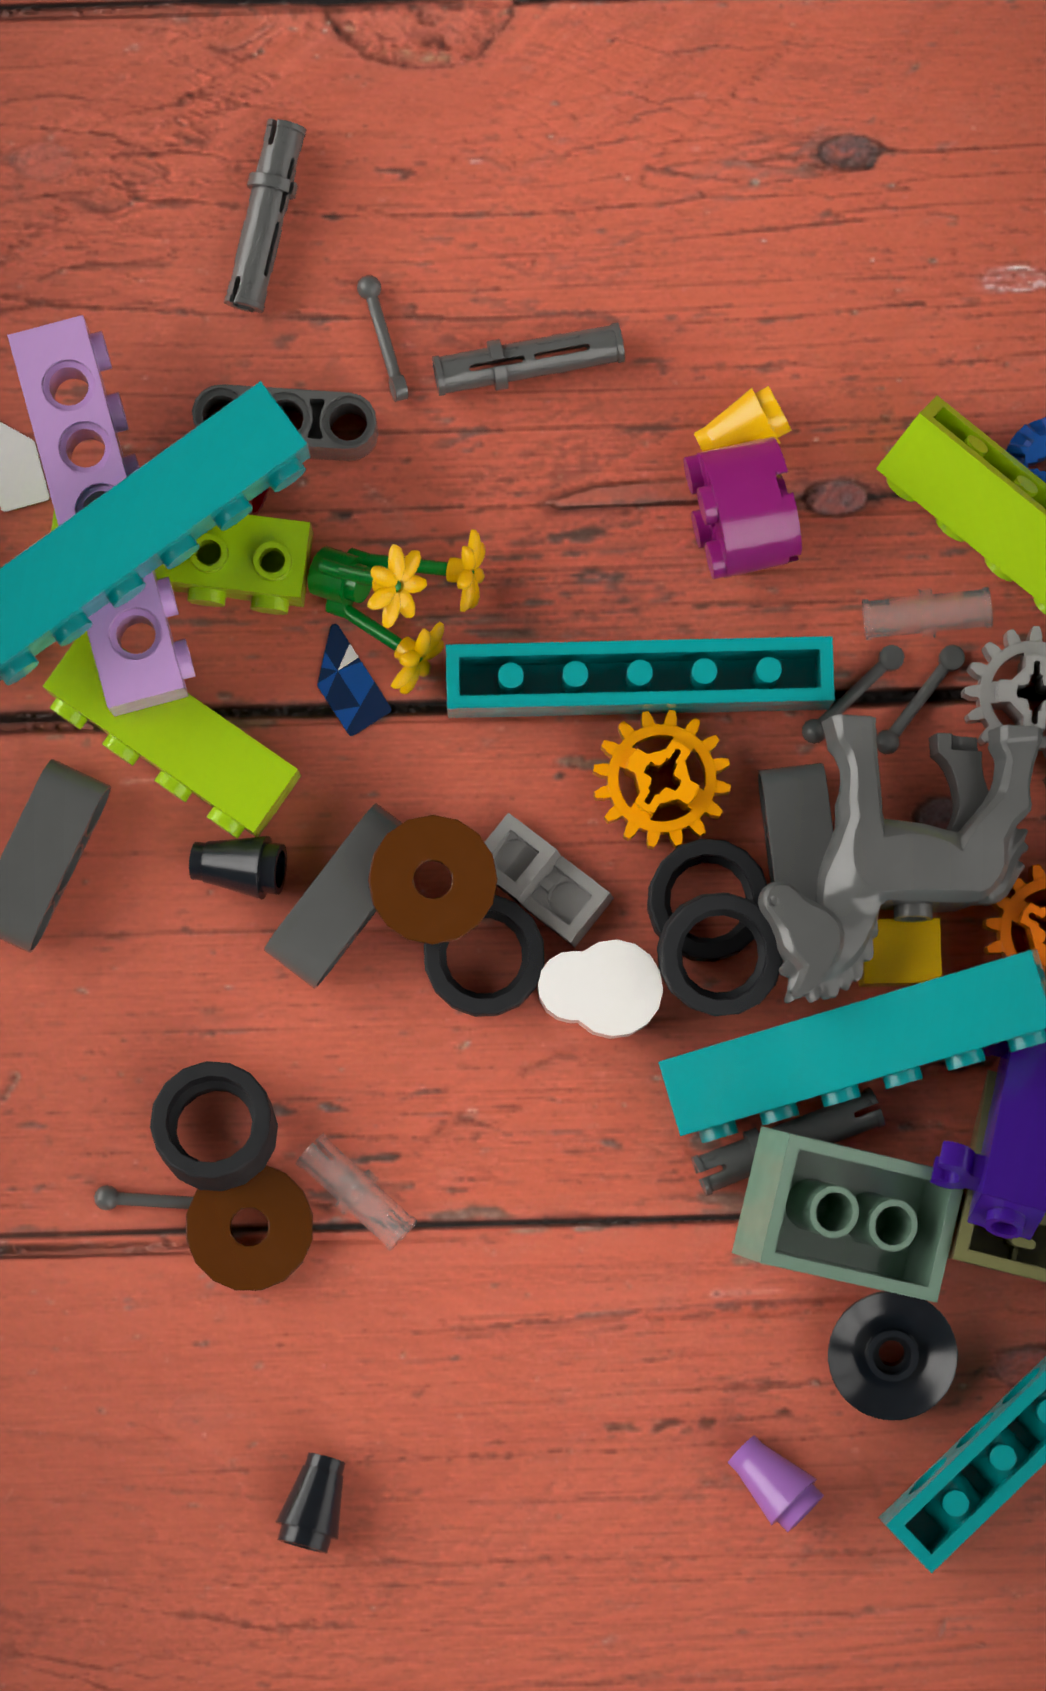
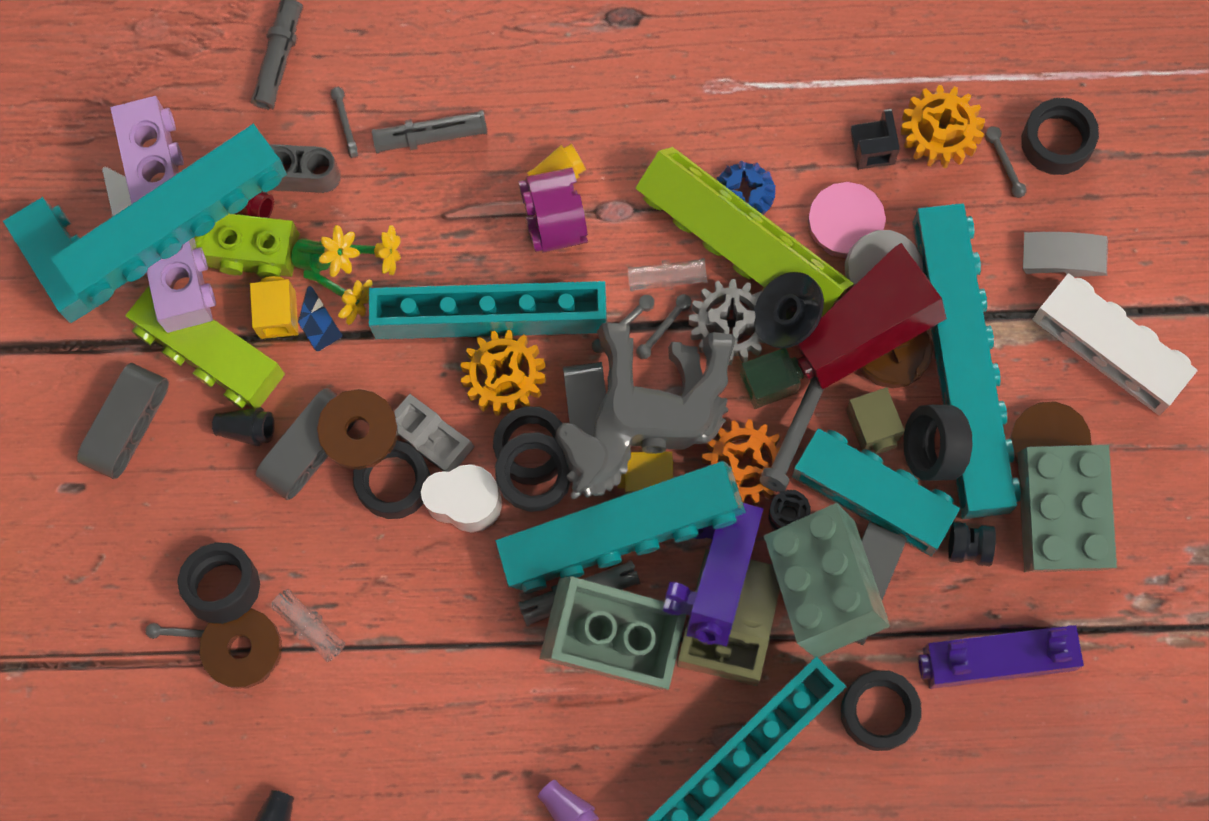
camera: 10 degrees right, 10 degrees down
(281, 665) = (274, 308): none -> yellow brick
(900, 1387) = (622, 735): black dish -> none

